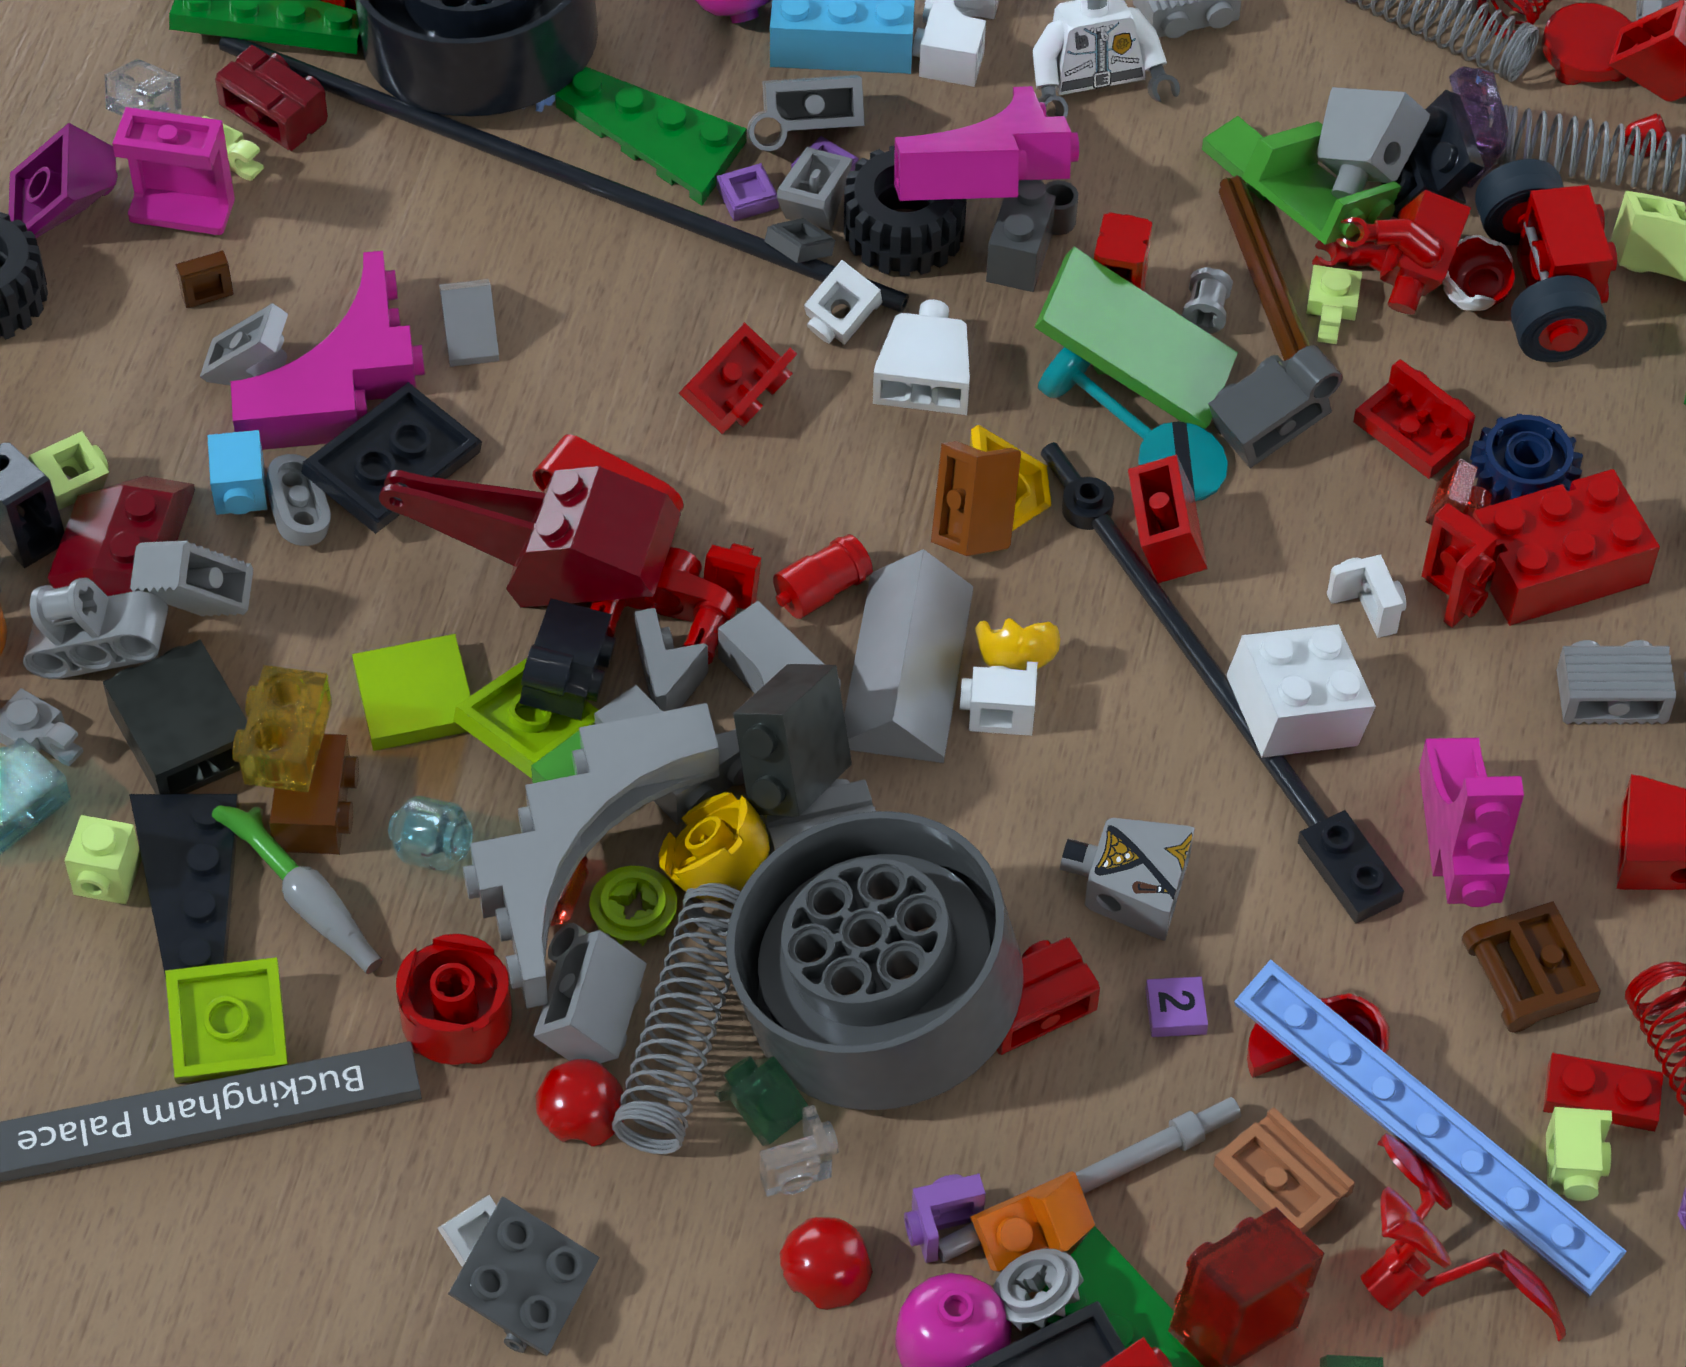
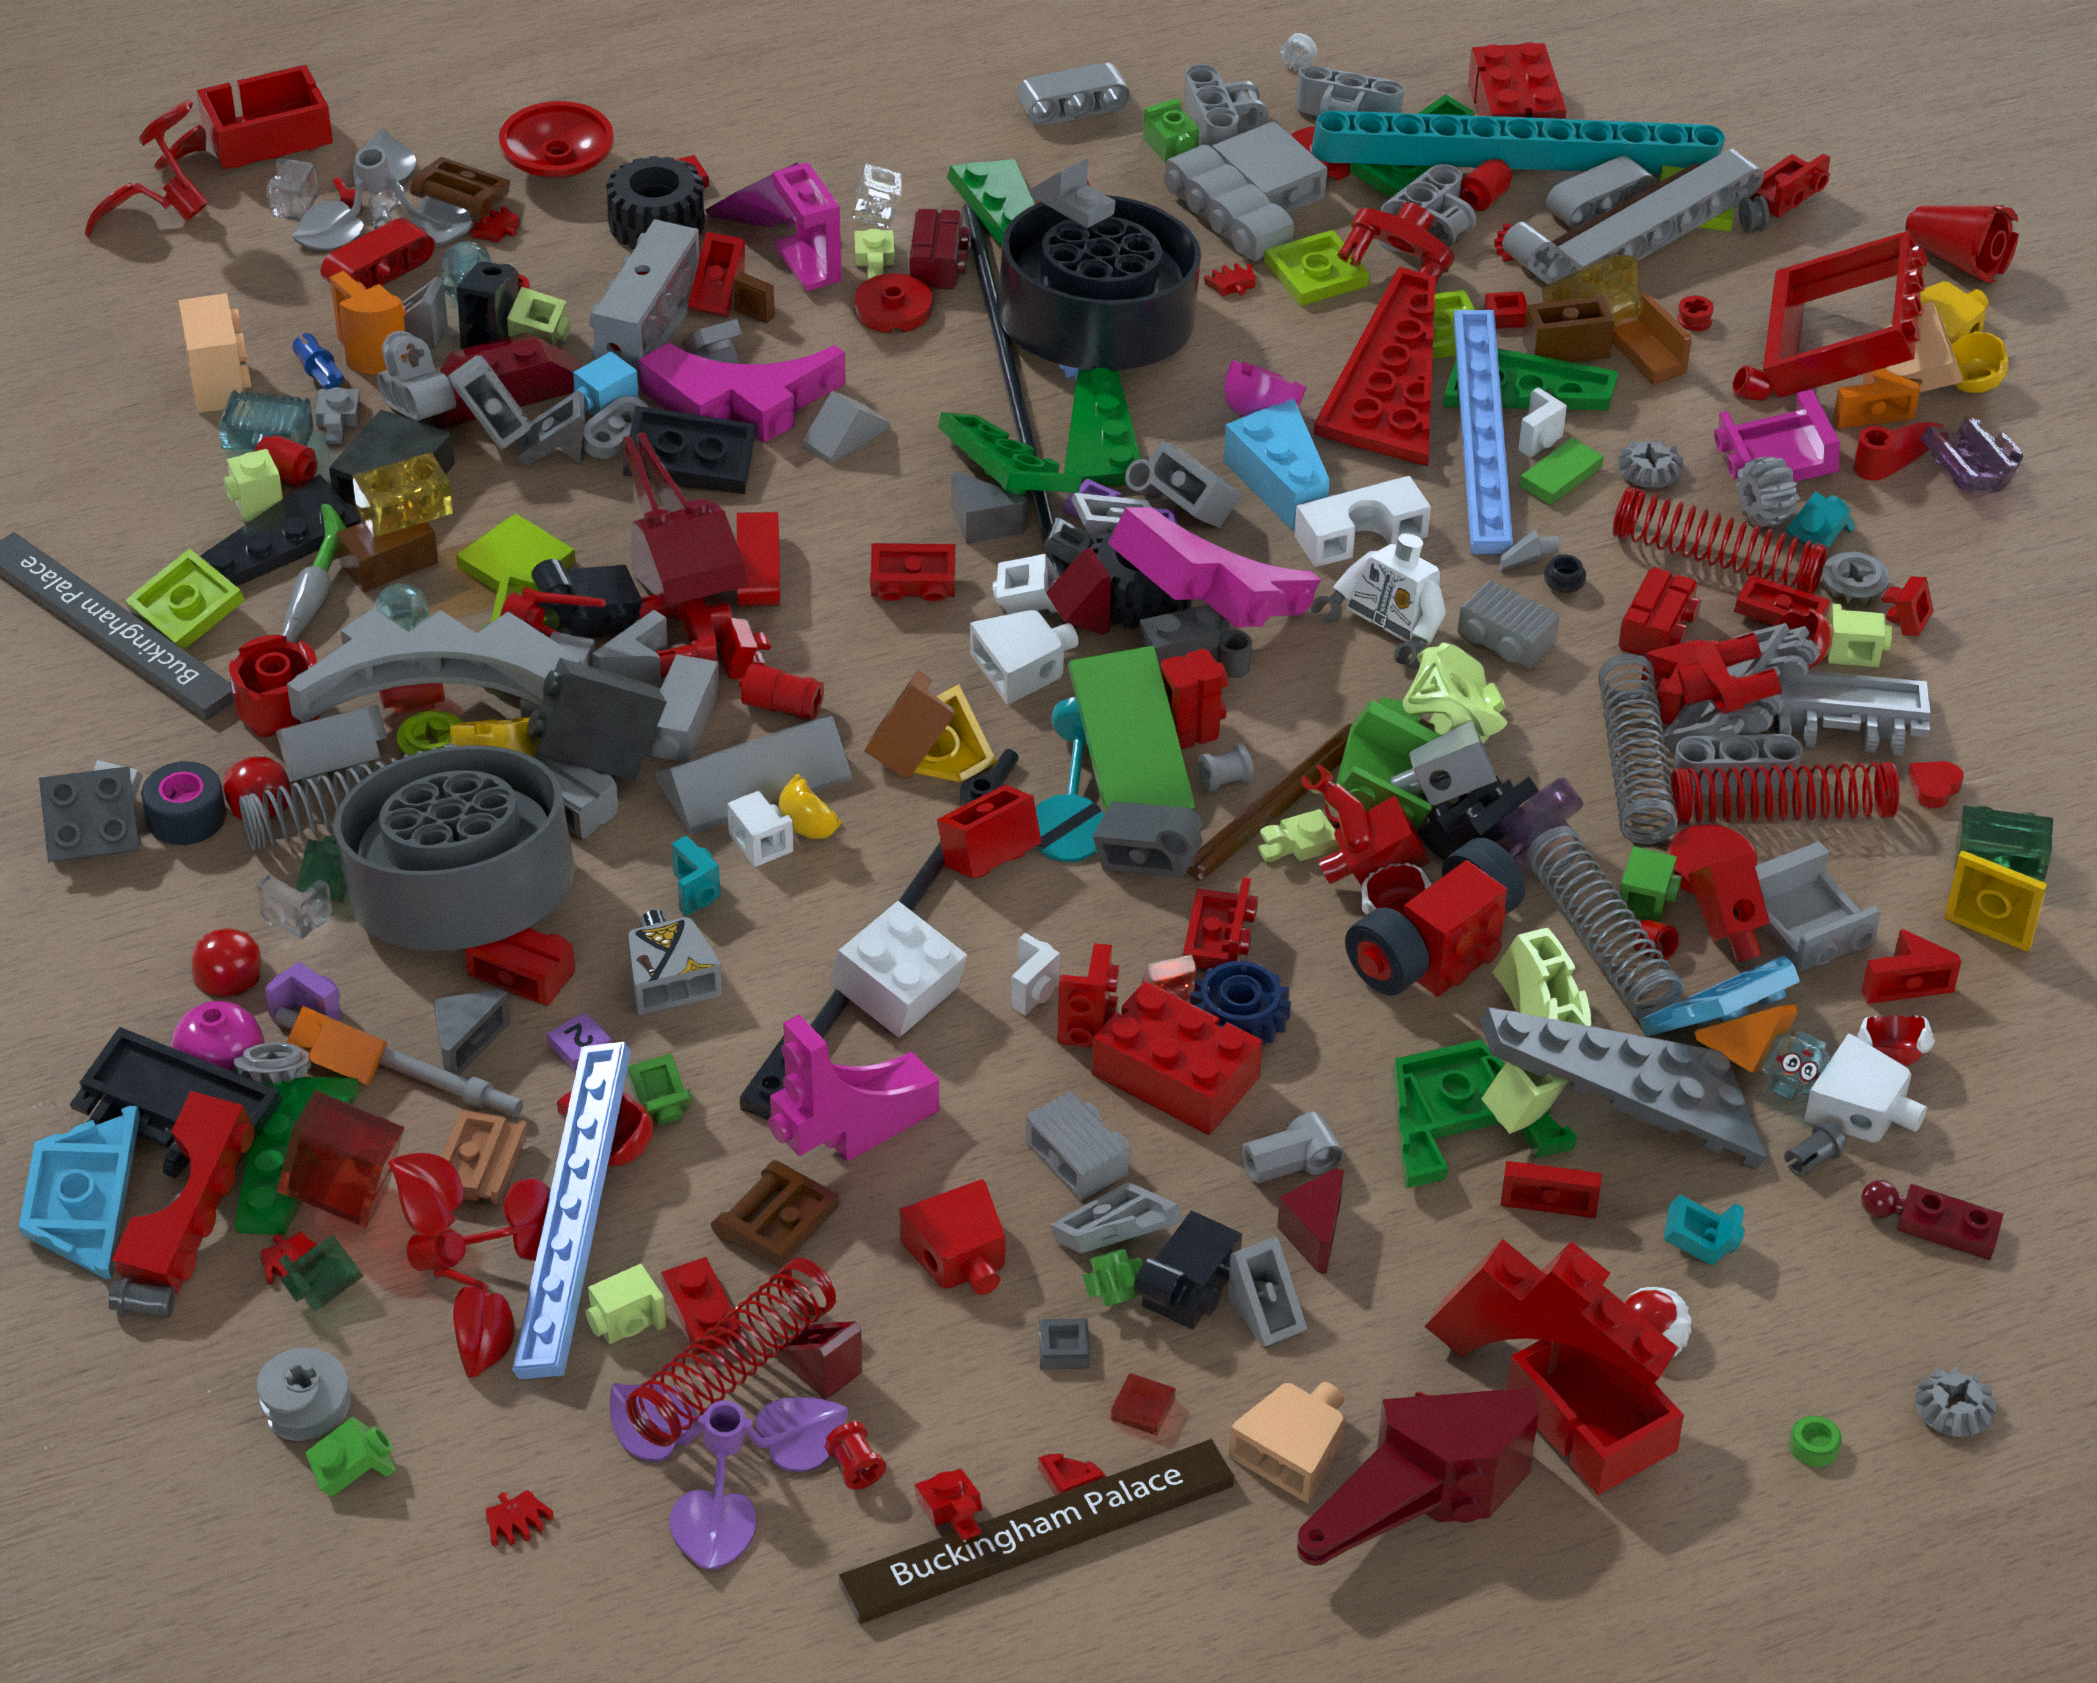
camera: 55 degrees right, 10 degrees down
(85, 799) = (293, 460): none -> red brick
(146, 363) = (648, 294): none -> light grey brick
(150, 285) = (718, 265): none -> red slope
(270, 542) = (557, 427): none -> flat silver slope
(310, 177) = (893, 302): none -> red plate
(555, 1158) = (183, 803): none -> black wheel
(560, 719) = (528, 608): none -> red plant
(643, 216) = (1005, 458): none -> green wing
(692, 277) = (985, 509): none -> flat silver slope
(912, 258) = (1084, 593): none -> dark red slope
(1028, 781) = (696, 874): none -> teal bracket
(1098, 1097) = (469, 1026): none -> flat silver slope
(1265, 88) = (1455, 691): none -> yellowish green piece
(1315, 970) = (659, 1088): none -> bright green bracket
(1590, 93) = (1649, 883): none -> bright green brick

